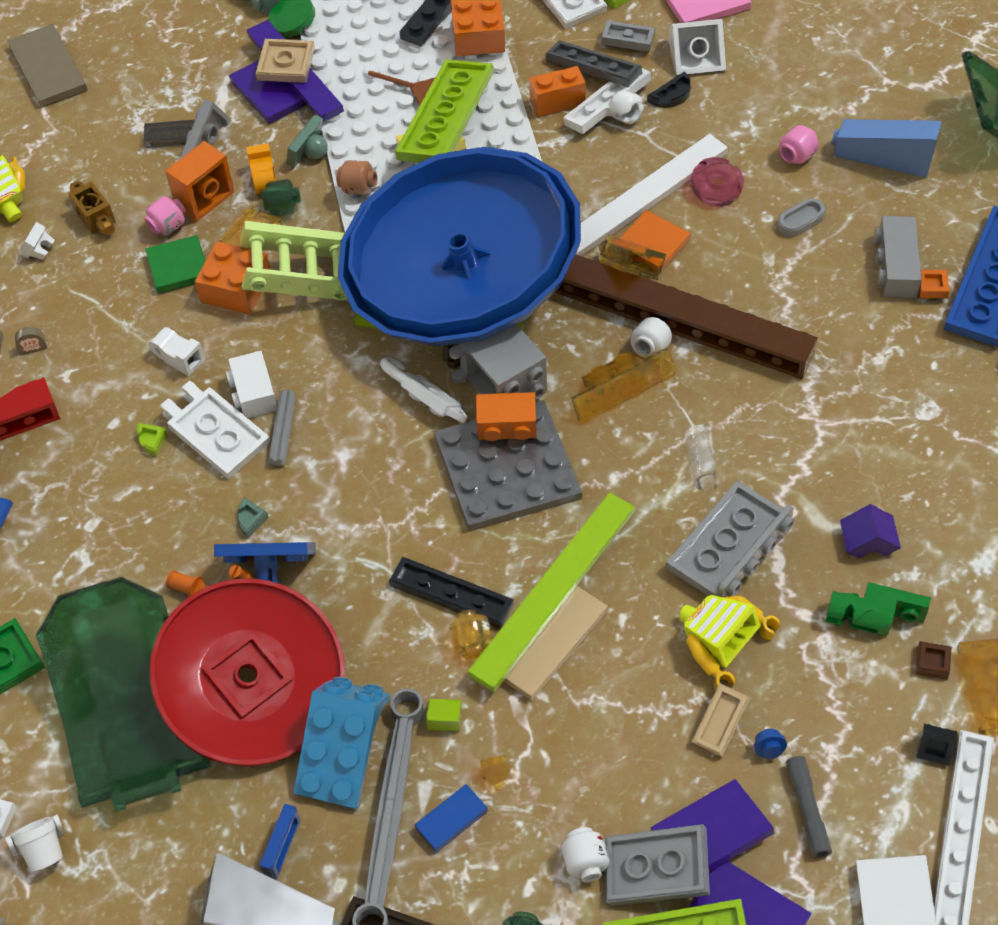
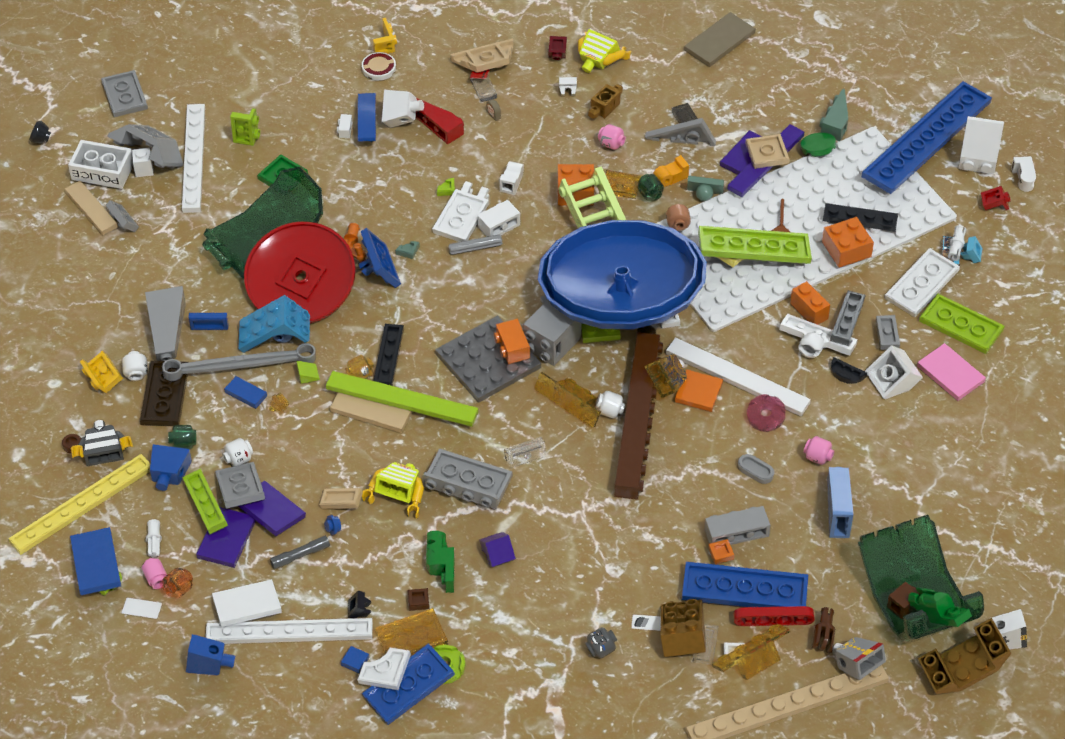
camera: 70 degrees right, 5 degrees down
(38, 842) = (178, 223): white piece -> none
(175, 263) = (581, 153): green tile -> none
(200, 180) = (642, 142): orange brick -> none
(424, 391) = (525, 301): white plate -> none

